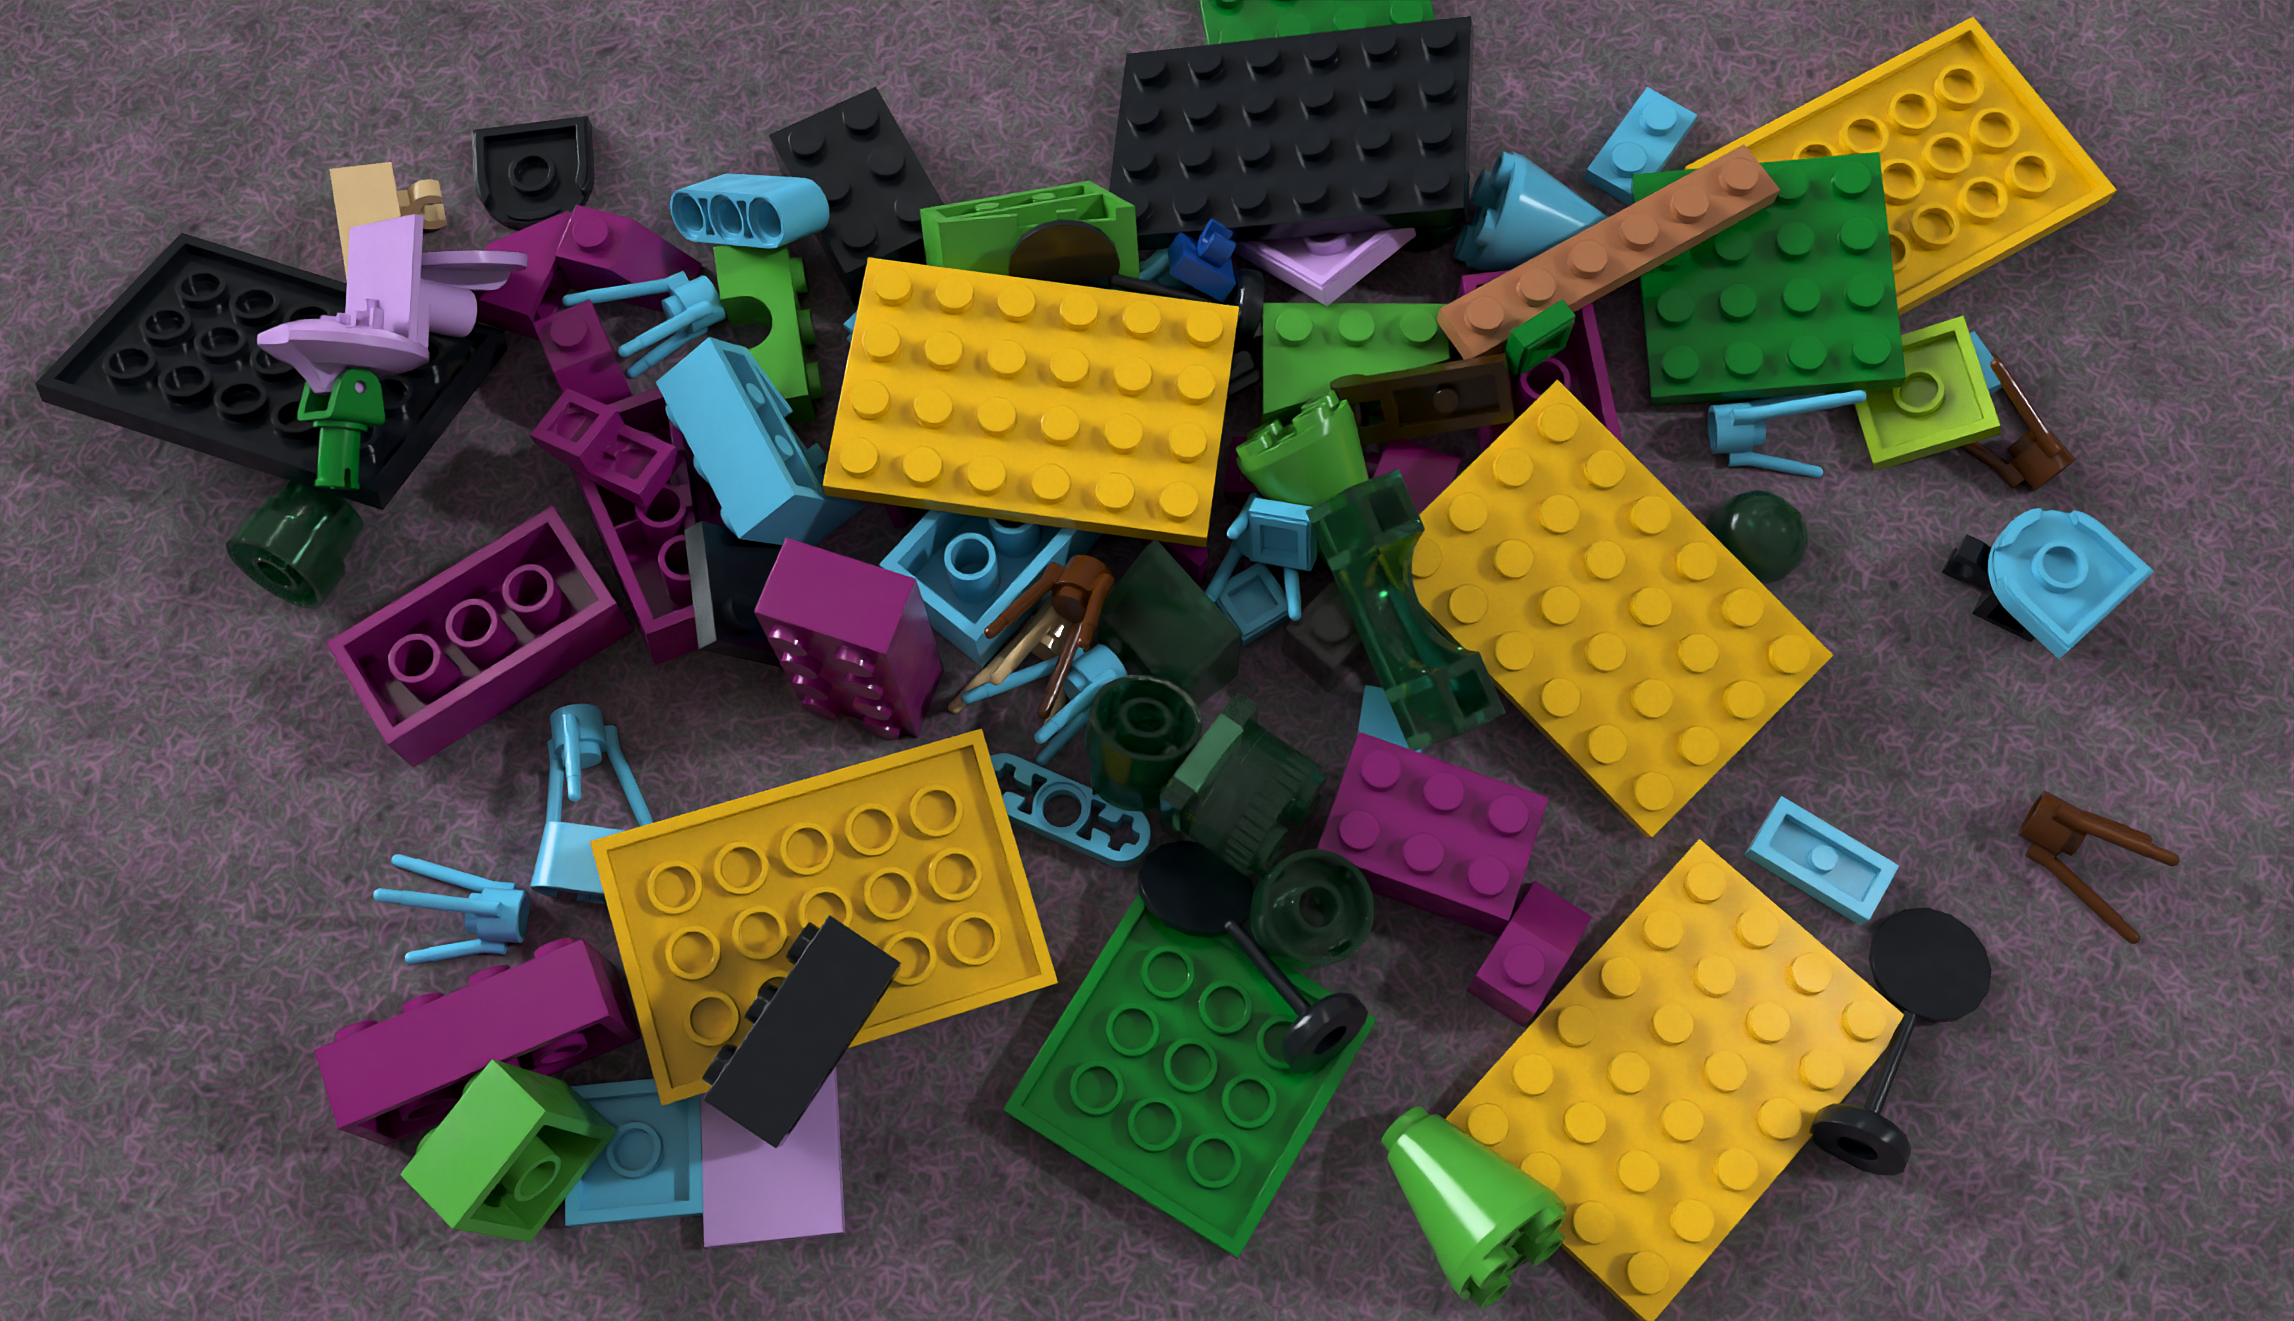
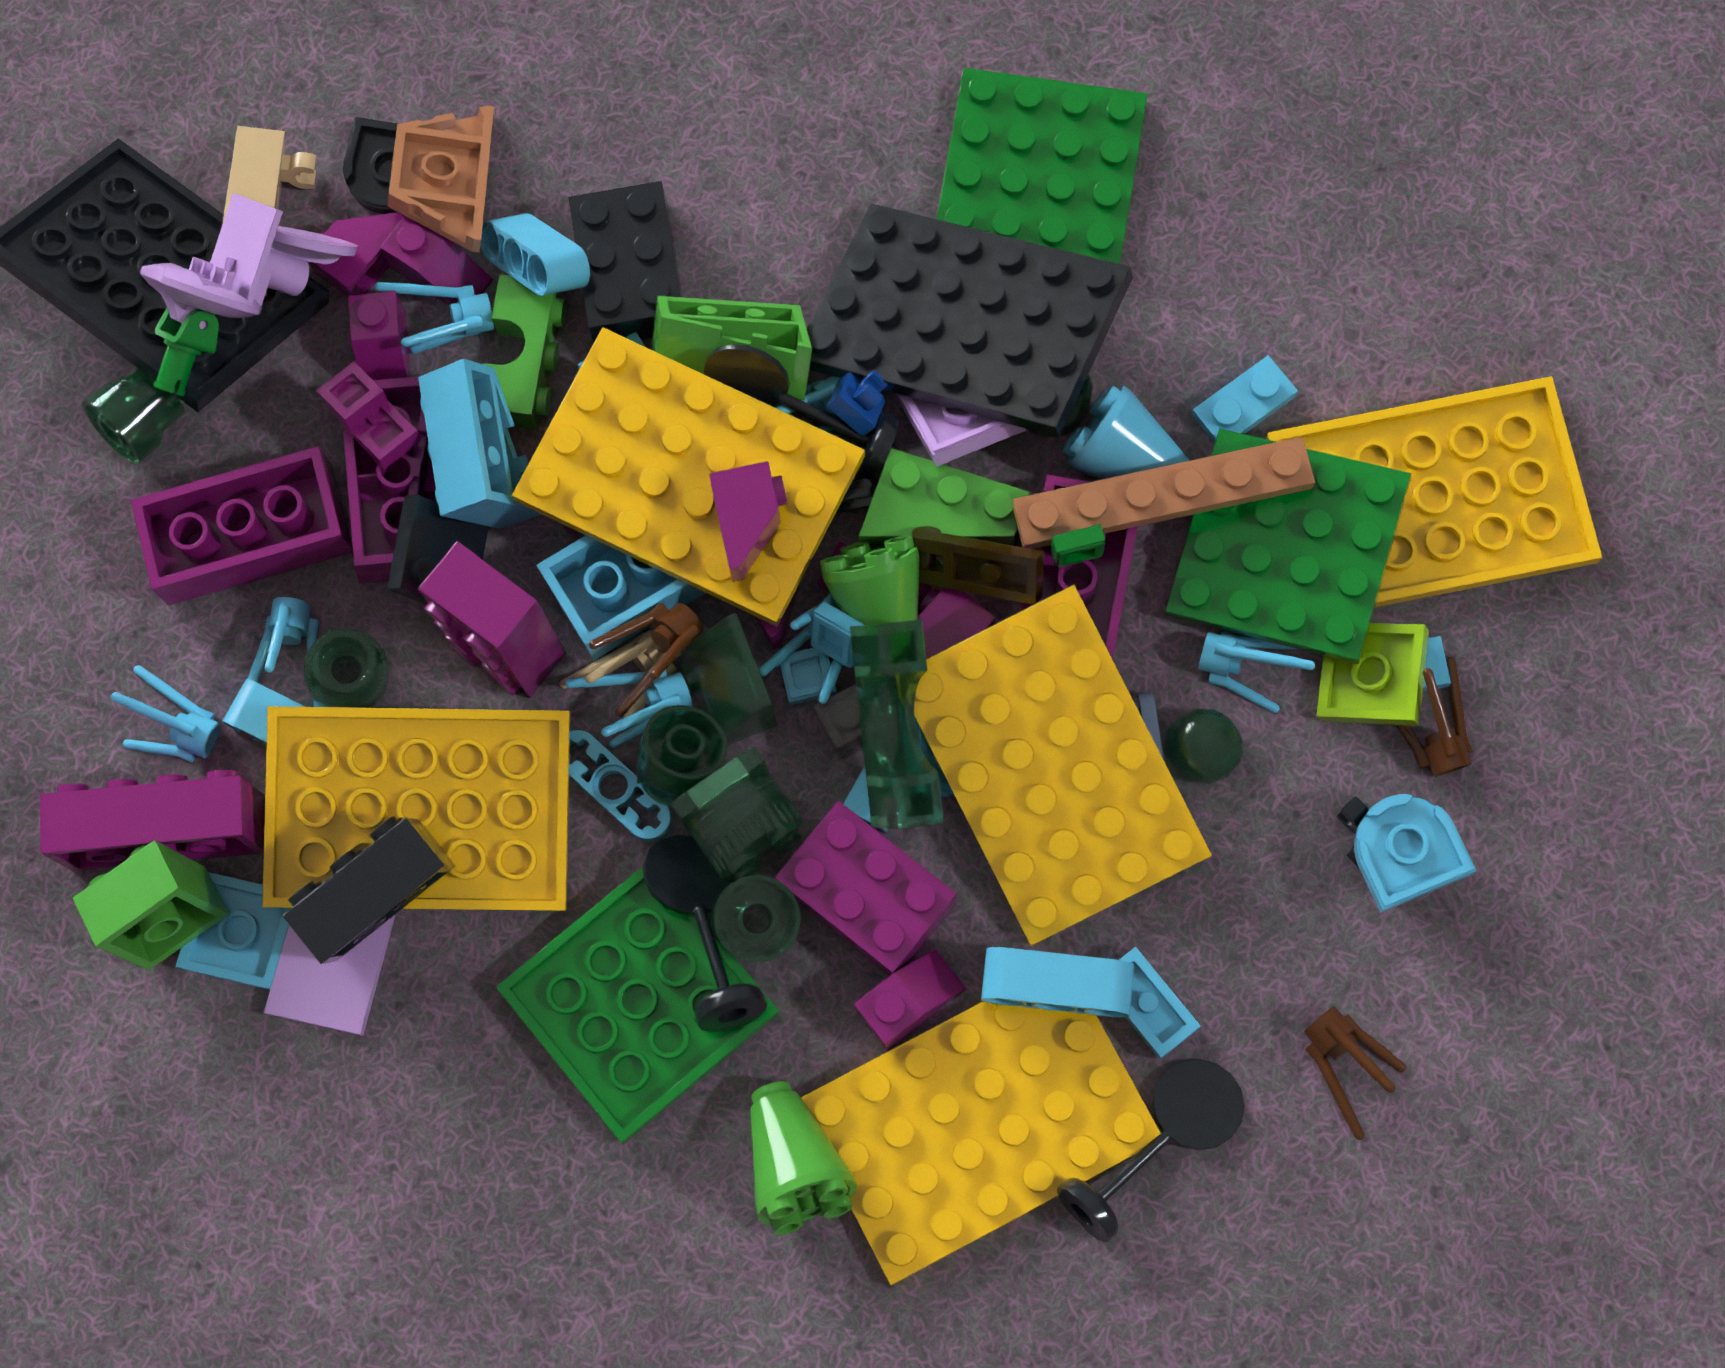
camera: 25 degrees right, 5 degrees up
(606, 156) = (443, 174): none -> nougat wing
(668, 741) = (340, 647): none -> clear green piece
(1128, 410) = (747, 512): none -> magenta slope
(1713, 866) = (1057, 982): none -> medium azure beam

